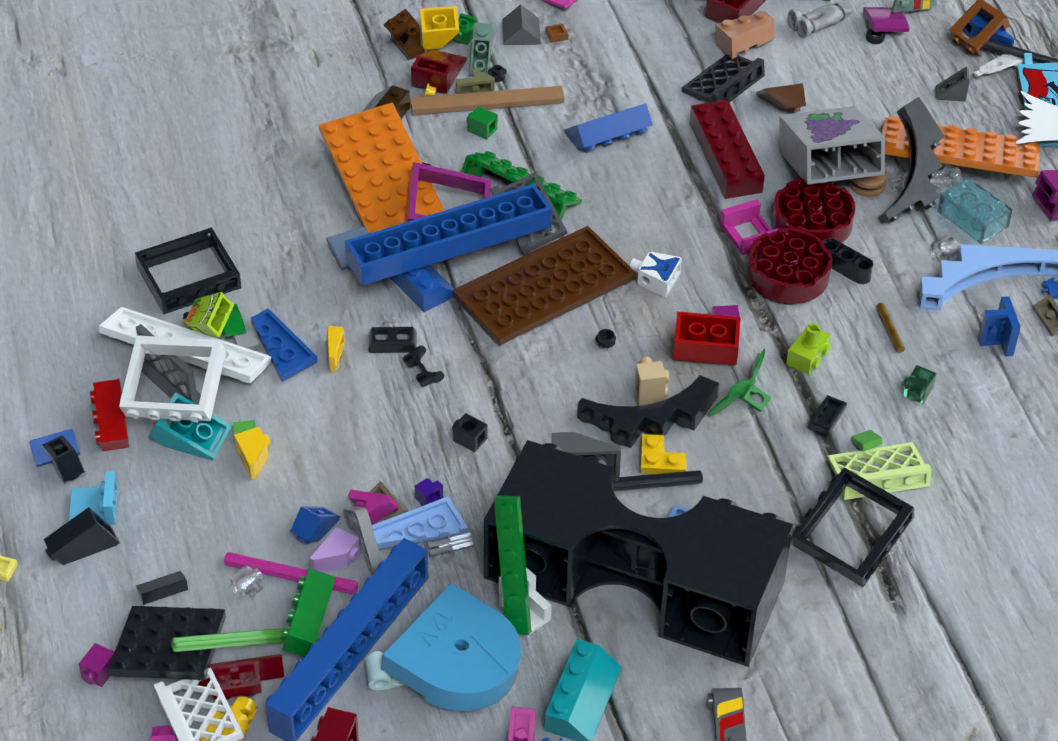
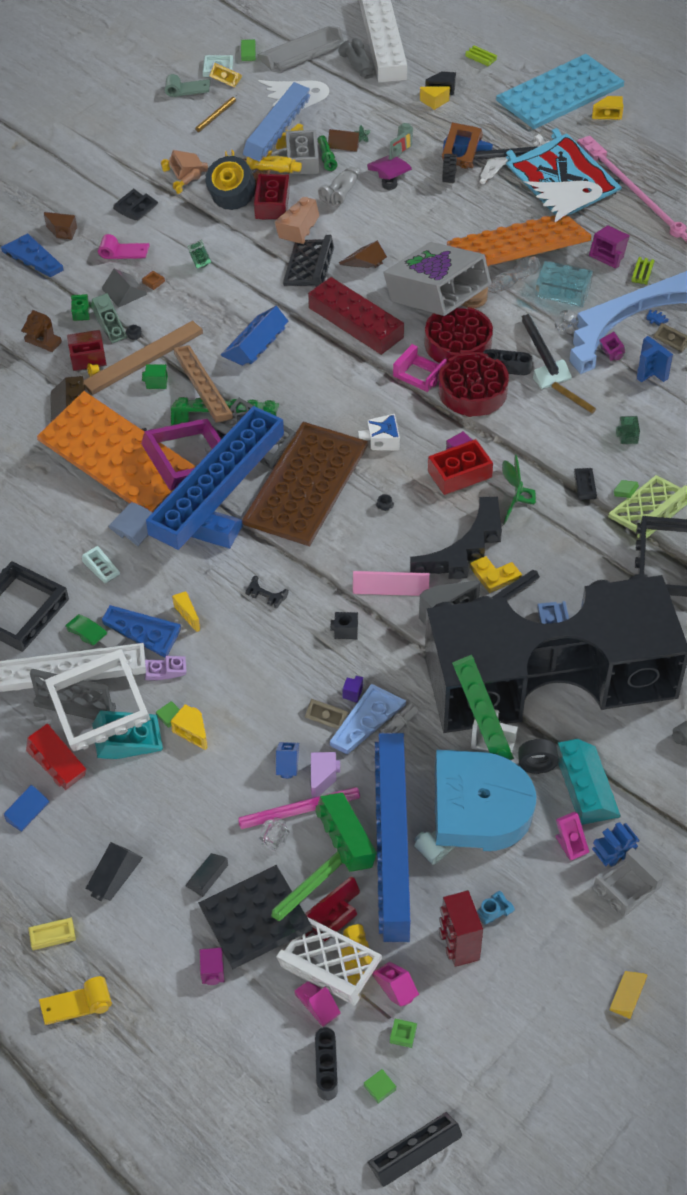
camera: 30 degrees left, 5 degrees up
(64, 458) = (44, 812): black slope -> none
(100, 499) = (97, 834): medium azure bracket -> none
(209, 314) = (68, 634): lime torso -> none
(270, 389) = (165, 669): none -> lavender slope
(291, 257) = (94, 553): none -> light aqua slope
(358, 519) = (333, 737): light grey beam -> none
(376, 504) = (326, 718): dark pink slope -> none
(392, 344) = (228, 586): black piece -> none
(438, 26) = (63, 312): yellow slope -> none
(477, 83) = (125, 346): olive slope -> none
(516, 147) = (203, 384): none -> medium nougat tile
(544, 413) = (390, 583): none -> bright pink slope
(554, 634) = (541, 764): none -> black tyre
(617, 25) = (199, 254): none -> clear green brick
(650, 382) = (450, 520): tan brick -> none
(809, 349) = (534, 440): lime brick -> none
(890, 293) = (545, 380): none -> light aqua slope
(894, 258) = (540, 344): none -> black axle
(922, 137) = (511, 264): black arch -> none
(946, 45) = (449, 168): none -> black tyre
(954, 87) = (477, 197): dark grey slope -> none
(973, 299) = (612, 346): none -> magenta brick

